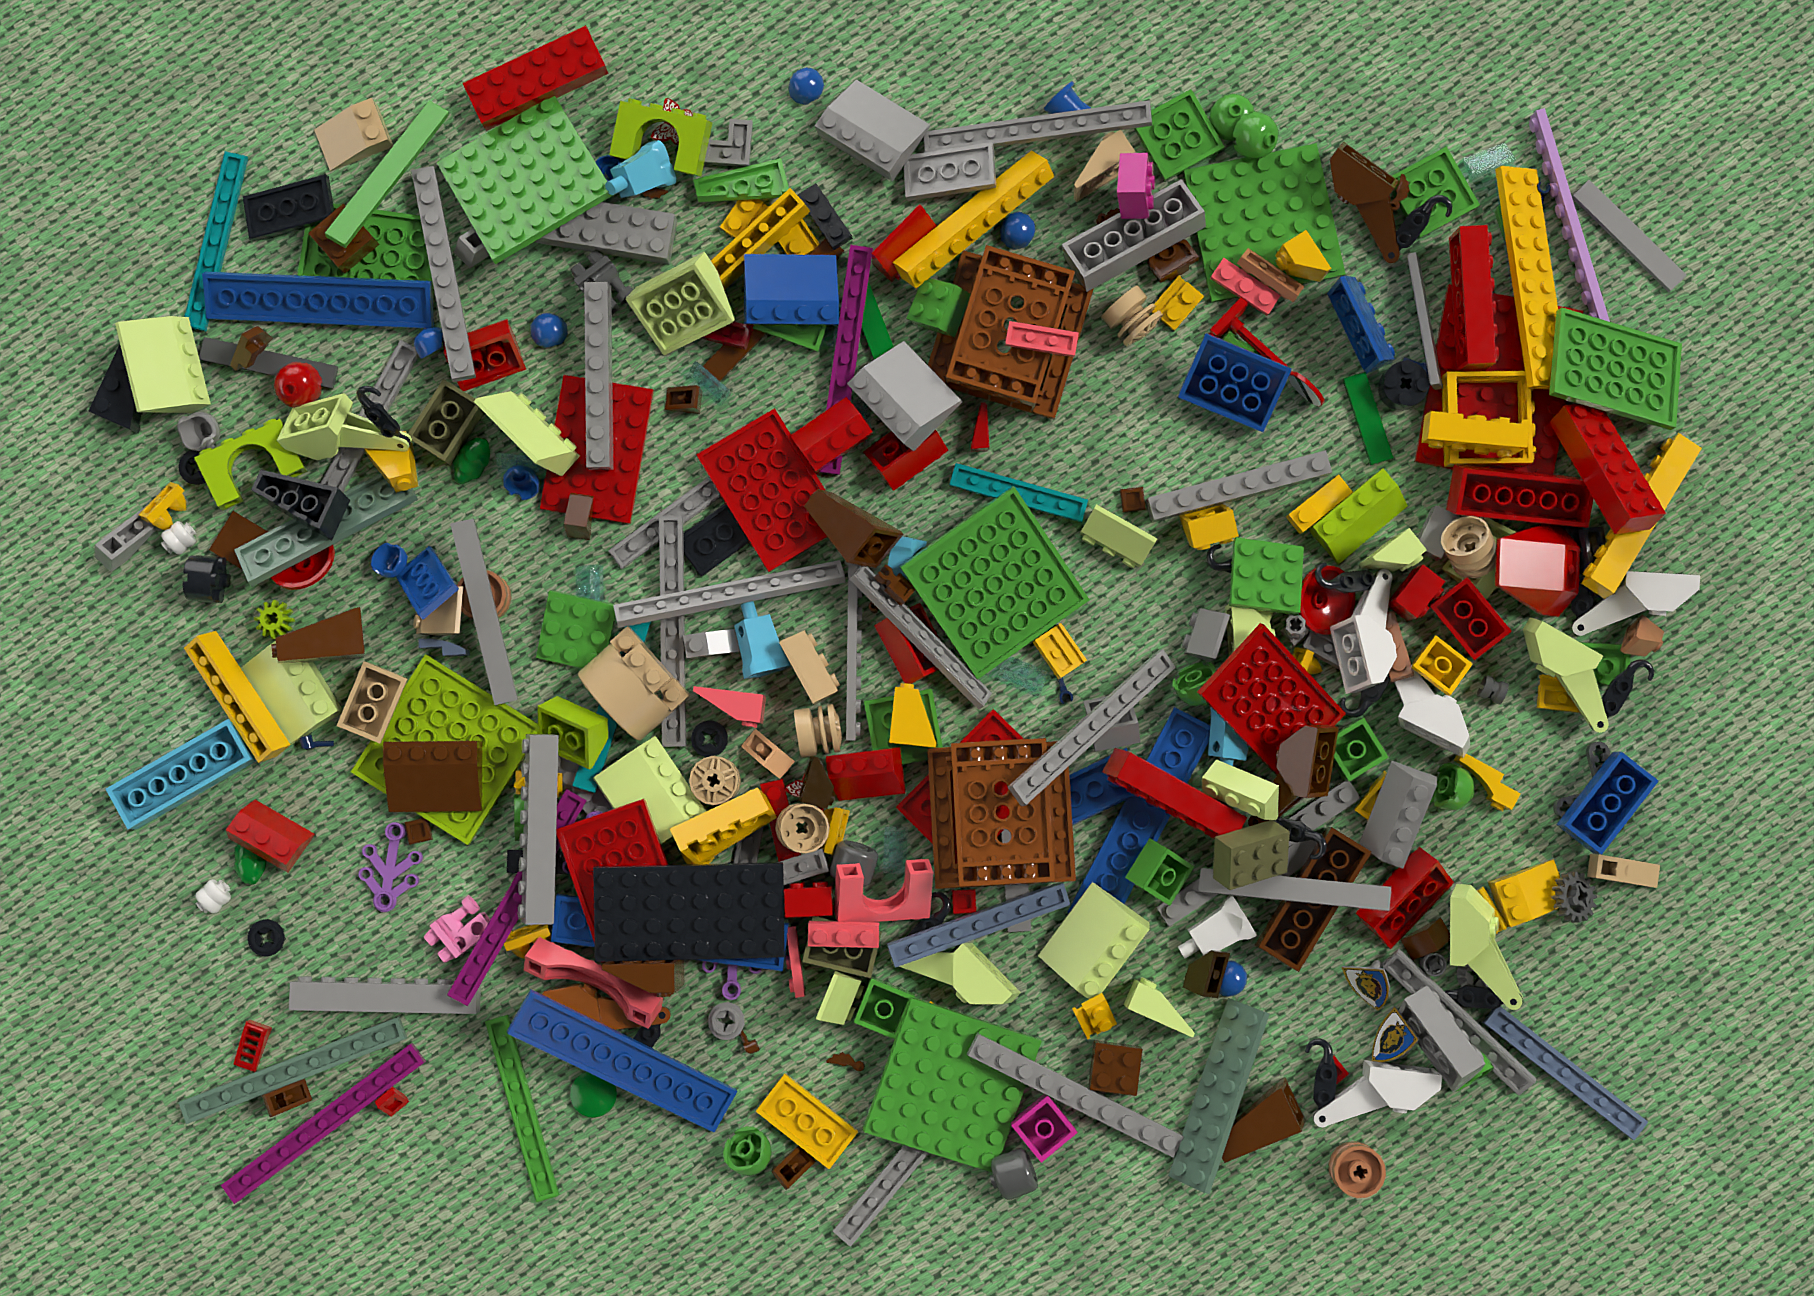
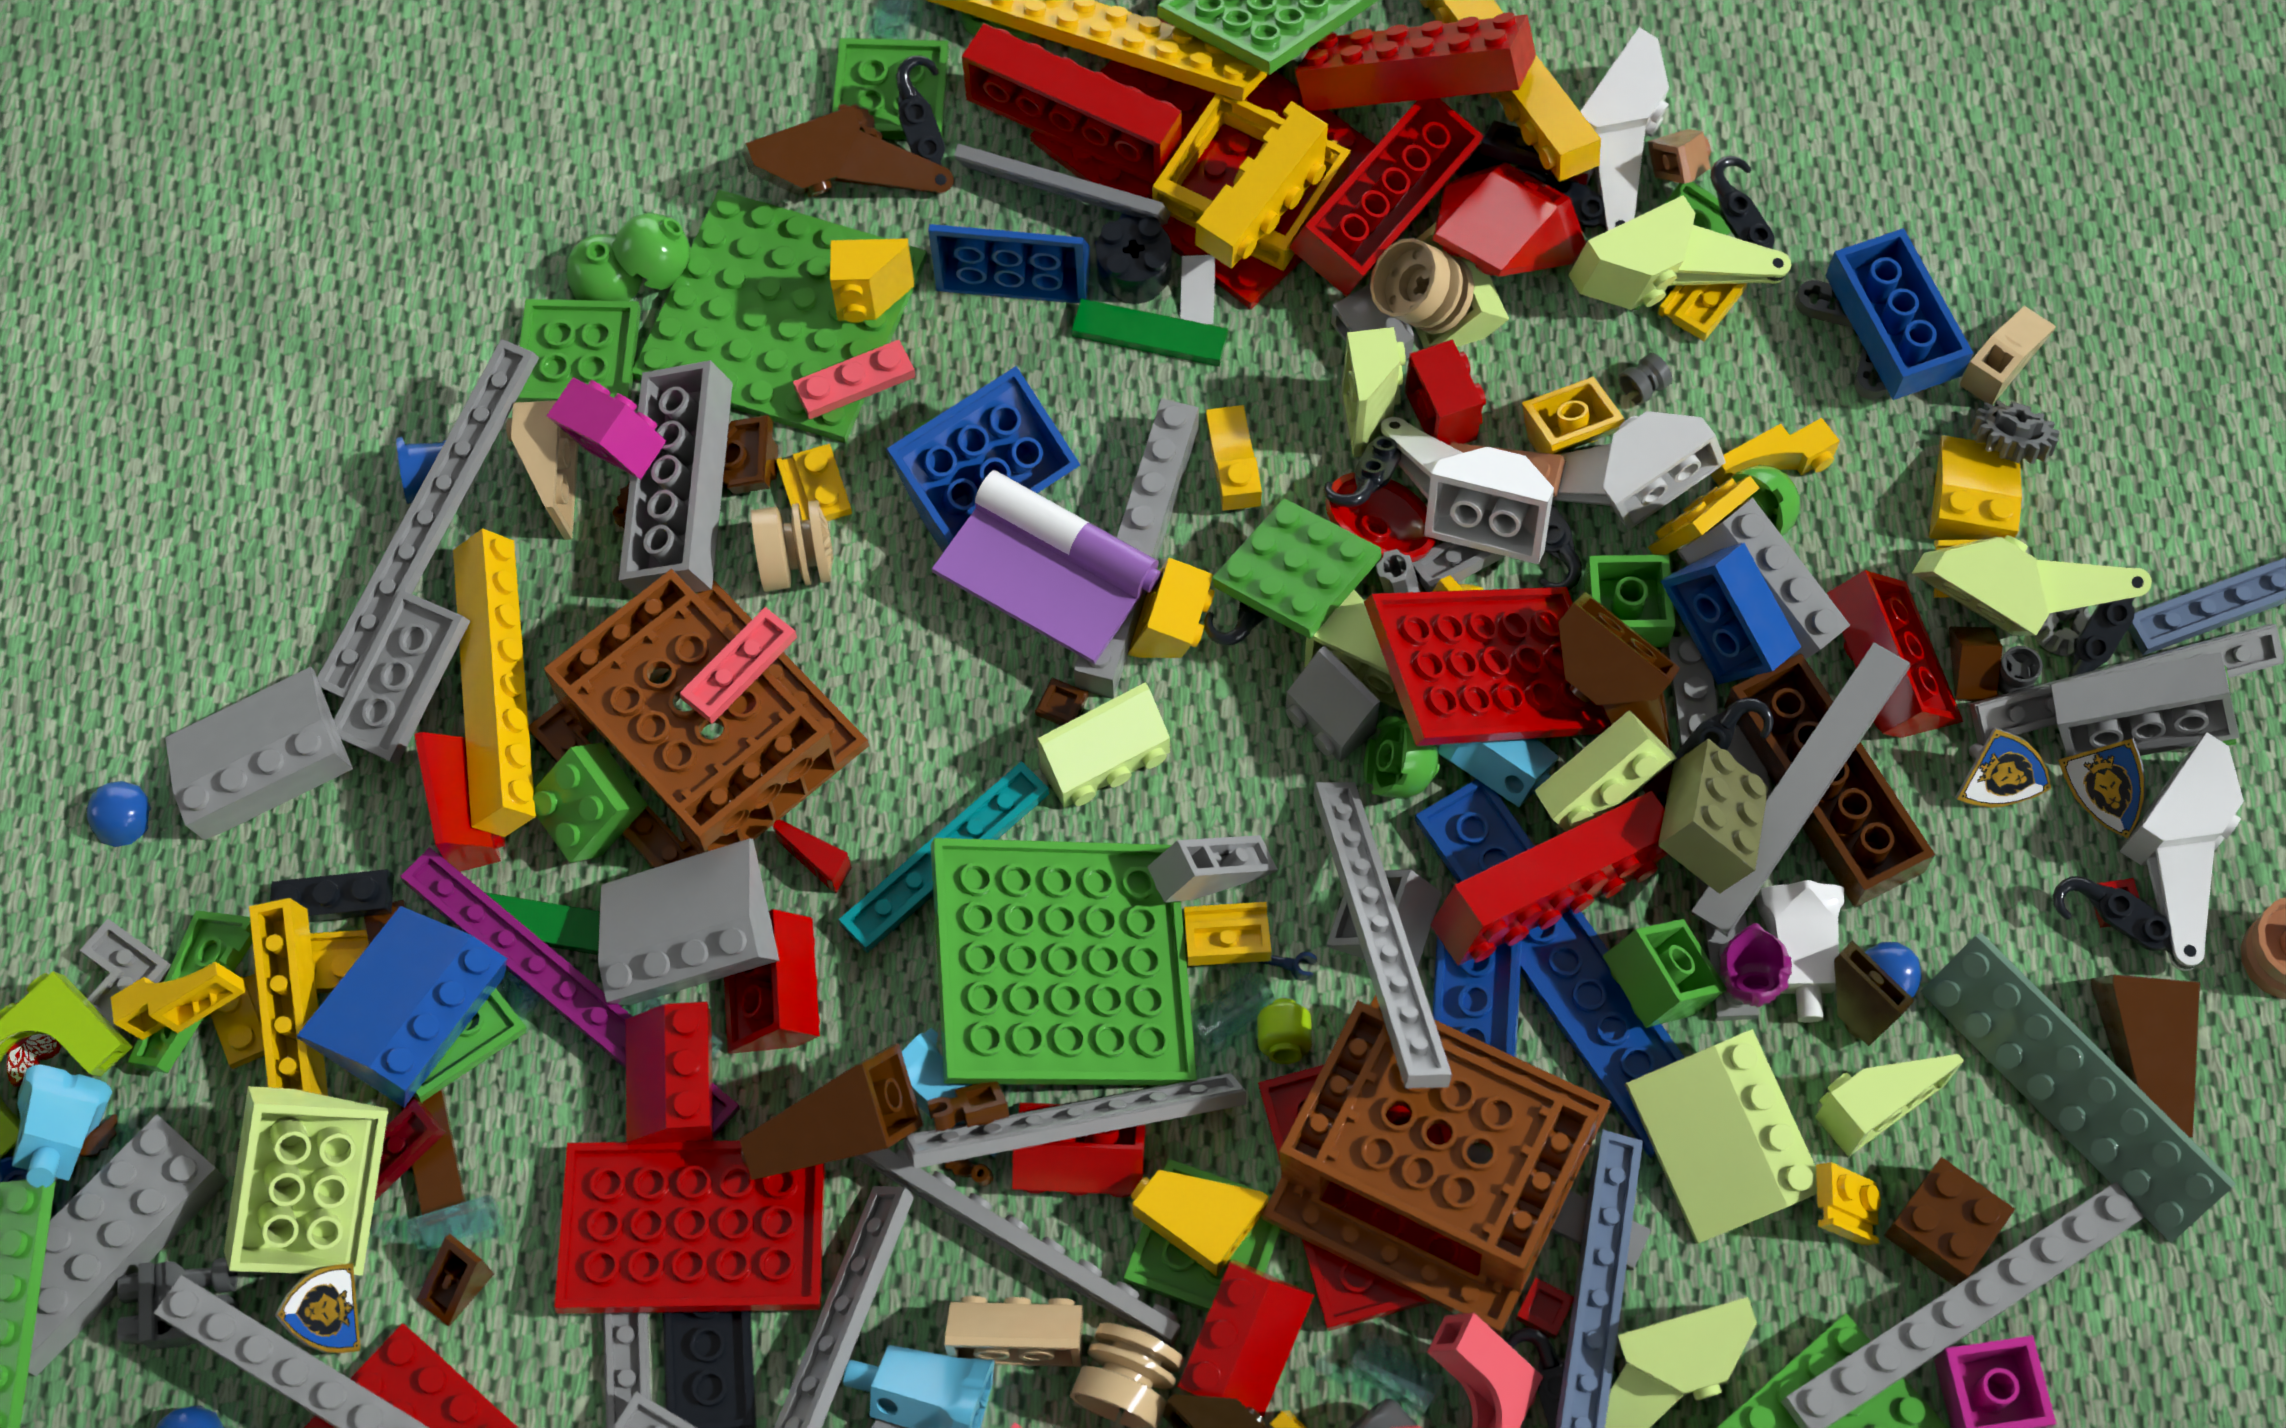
camera: 60 degrees left, 20 degrees down
(635, 352) = (323, 1310): none -> shield
(720, 172) = (174, 1004): none -> yellow slope
(1017, 230) = (550, 635): blue hair -> none
(1026, 706) = (1284, 1031): none -> lime head
(1087, 624) = (1209, 865): none -> light grey slope
(1187, 914) = (1755, 966): none -> magenta hair
(1192, 451) = (1047, 567): none -> medium lavender door
(1231, 322) = (1049, 380): red piece -> none
(1270, 275) = (861, 337): nougat plate -> none
(1359, 516) = (1283, 414): lime slope -> none
(1371, 807) = (1731, 614): none -> blue slope
(1405, 428) = (1197, 288): none -> white sticker
(1420, 763) = (1702, 515): none -> yellow plate
(1470, 618) = (1525, 346): red slope -> none

